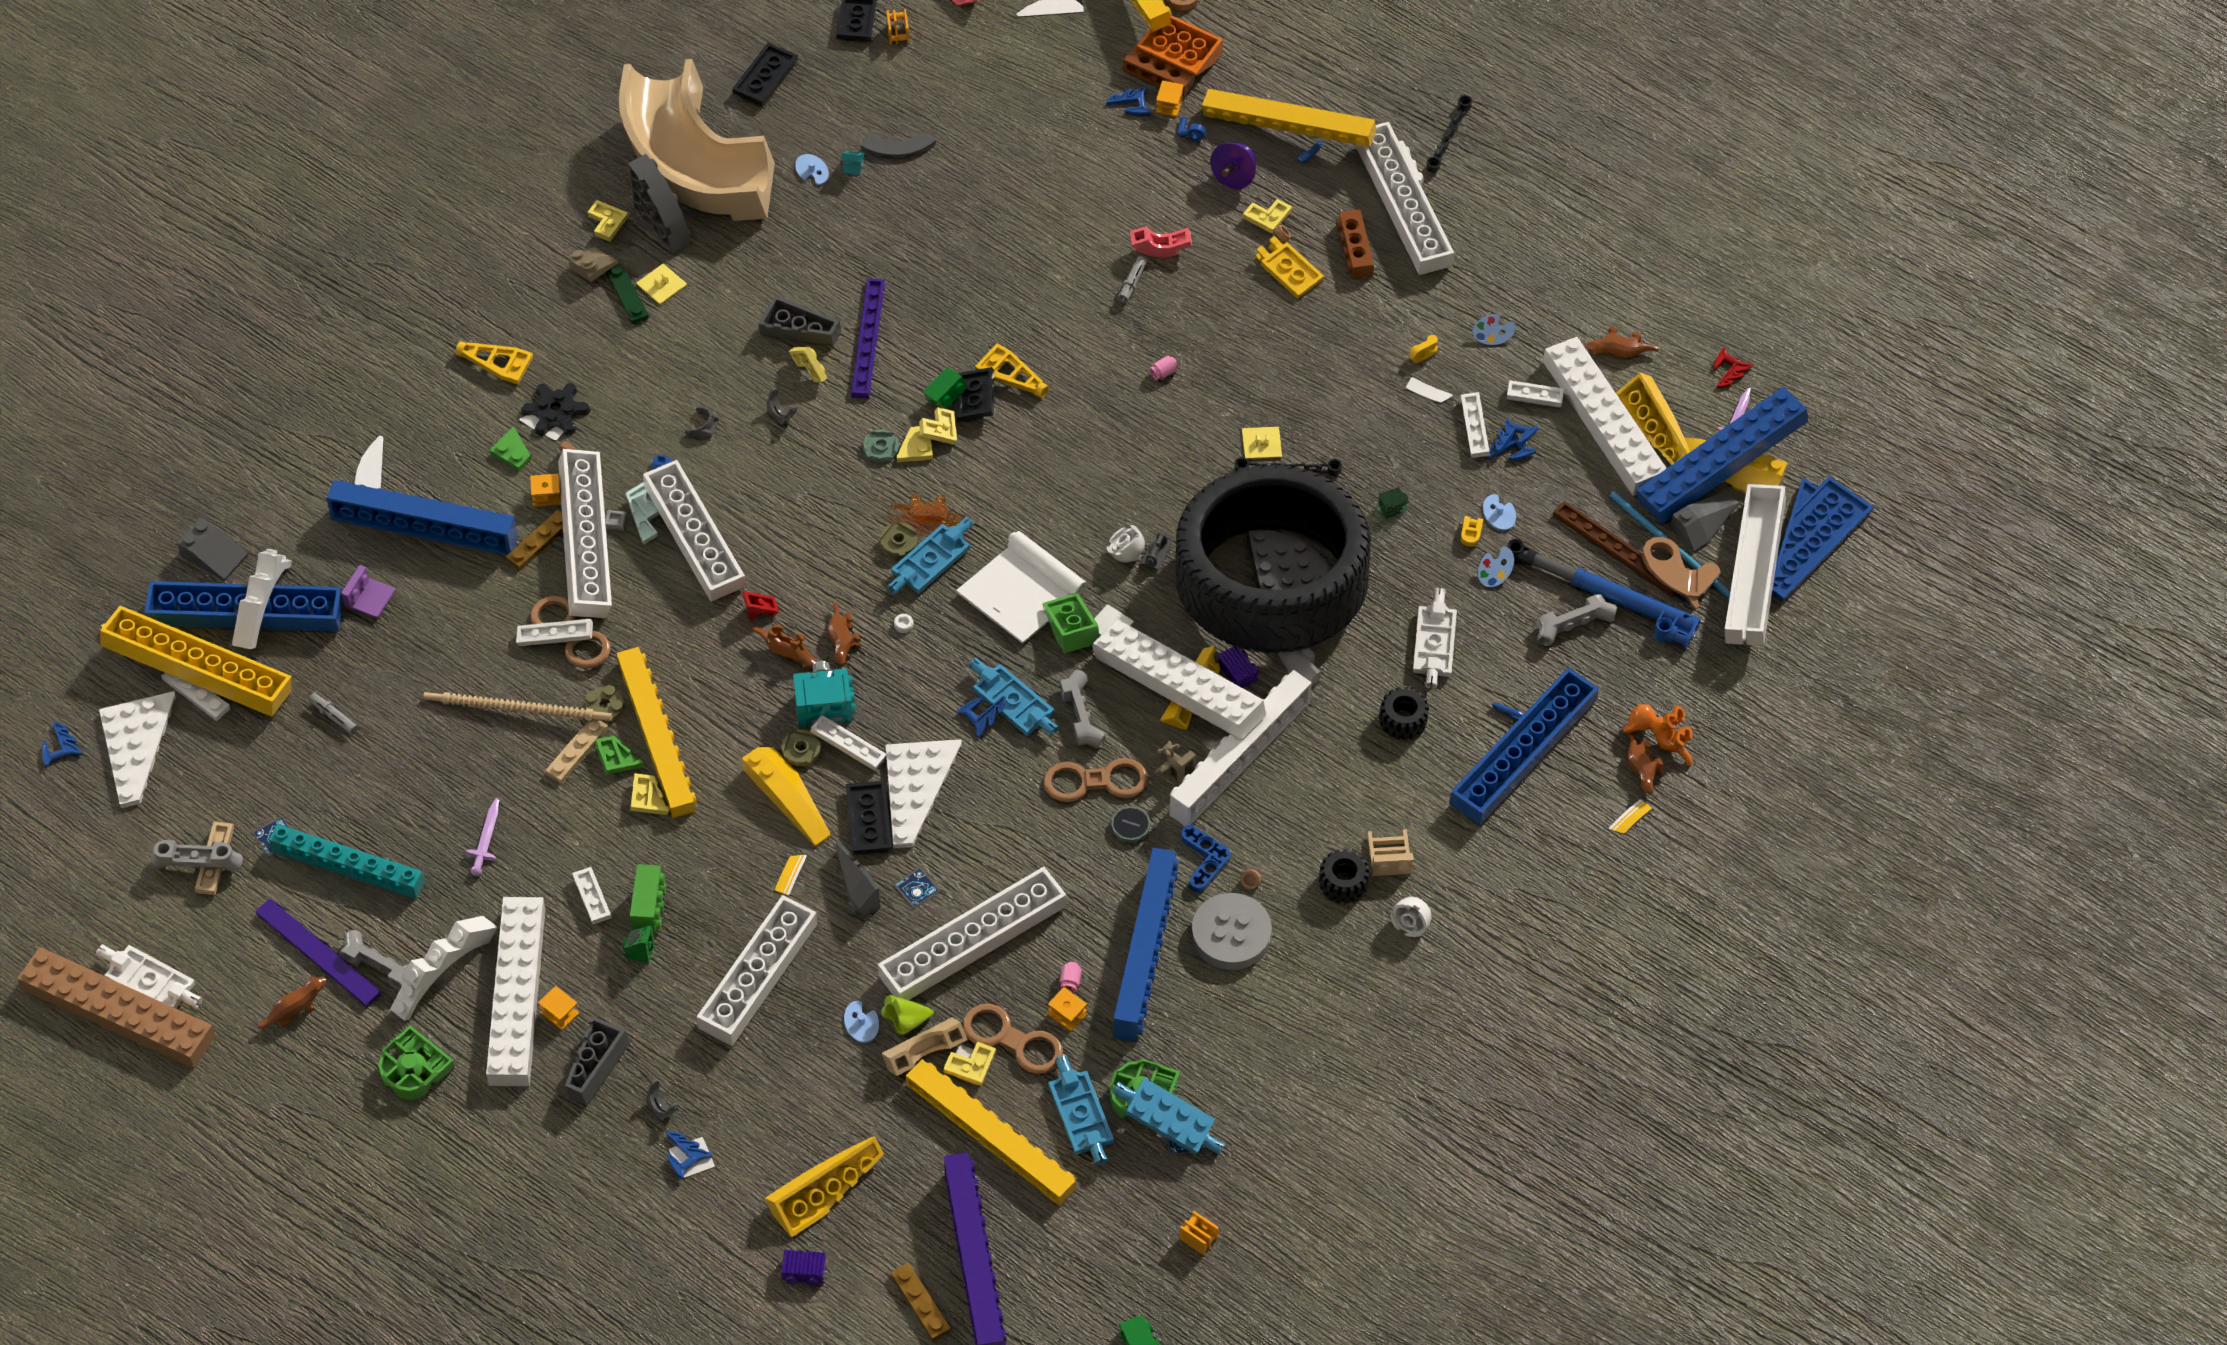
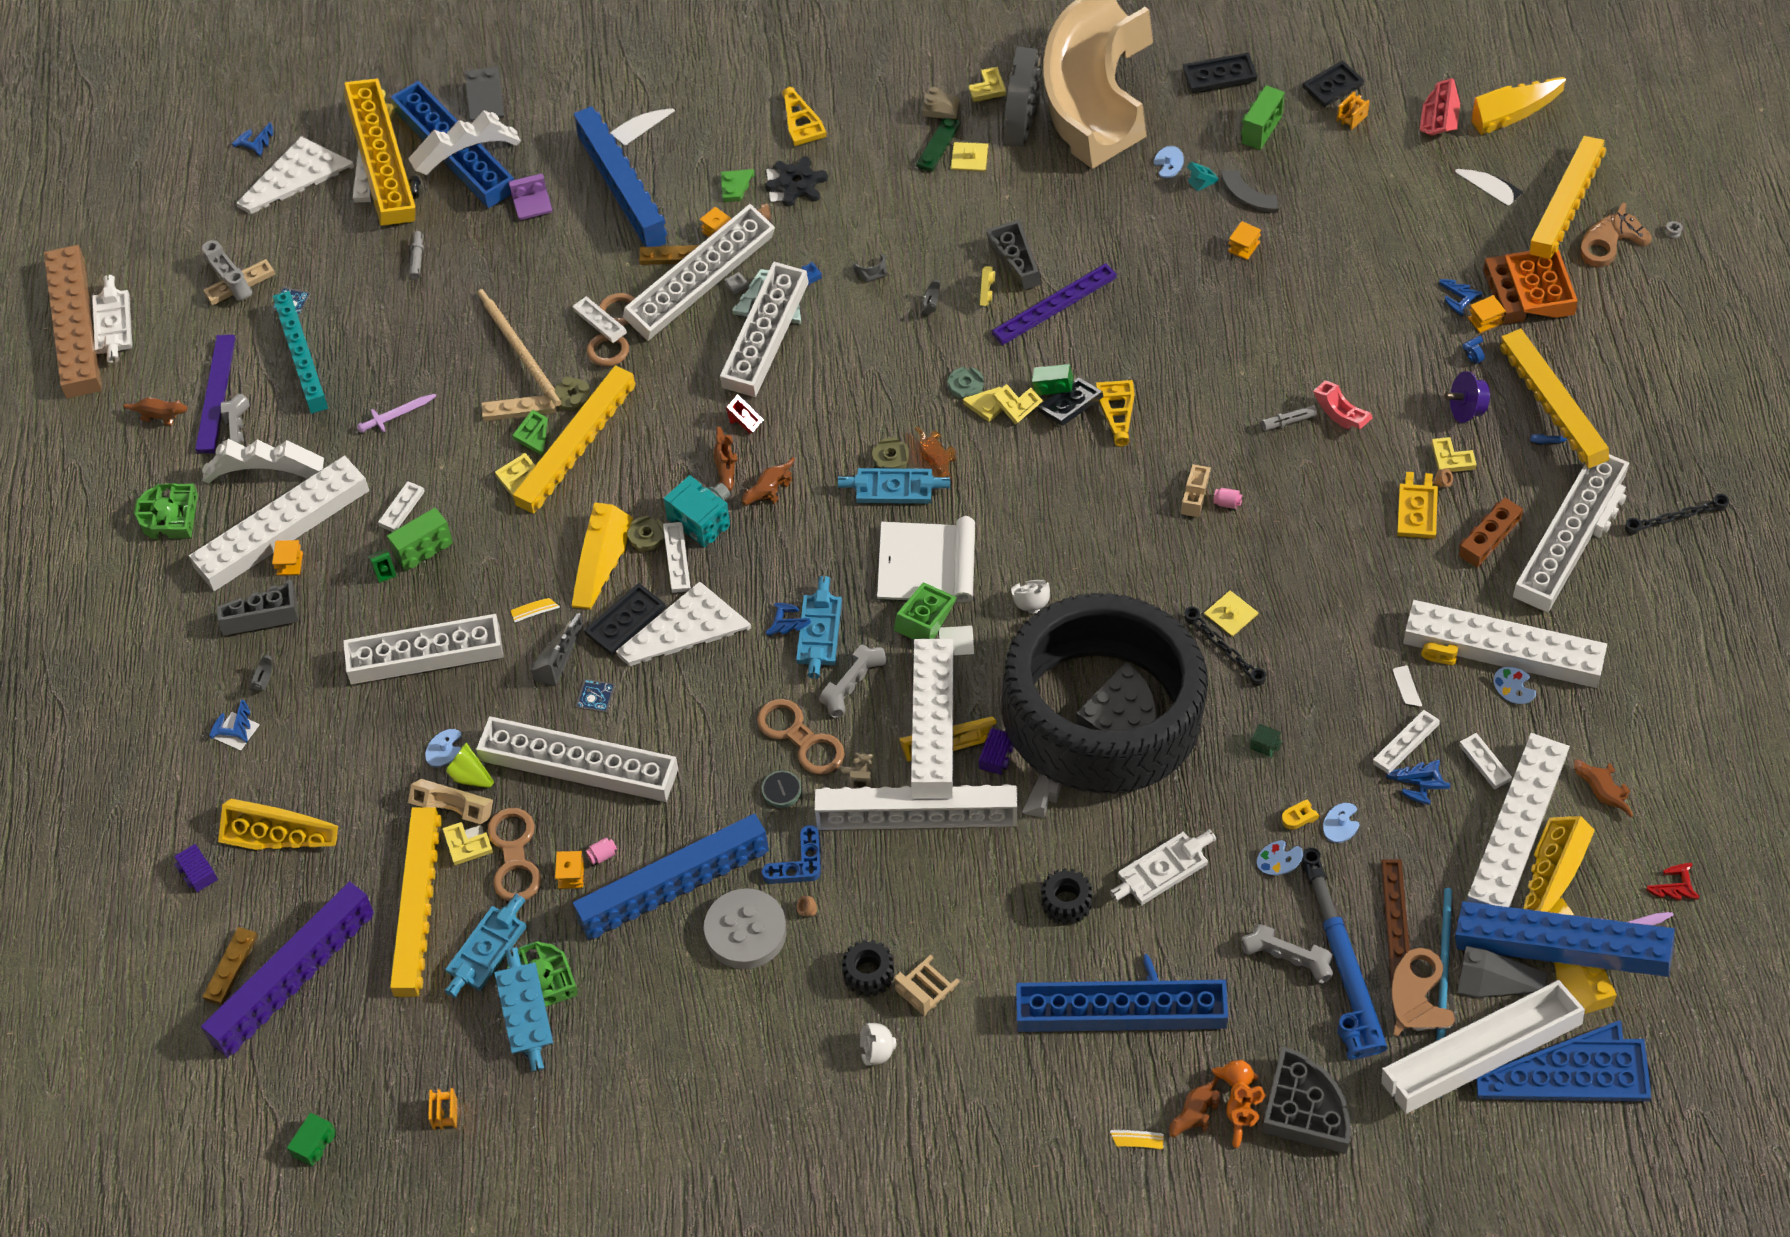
camera: 55 degrees right, 0 degrees up
(844, 81) = (1262, 117): none -> bright green brick
(903, 623) = (821, 513): white tile -> none
(944, 181) = (1244, 240): none -> light orange piece
(1136, 381) = (1195, 490): none -> tan slope
(1455, 307) = (1507, 643): none -> white brick
(1705, 694) = (1307, 1105): none -> dark grey brick

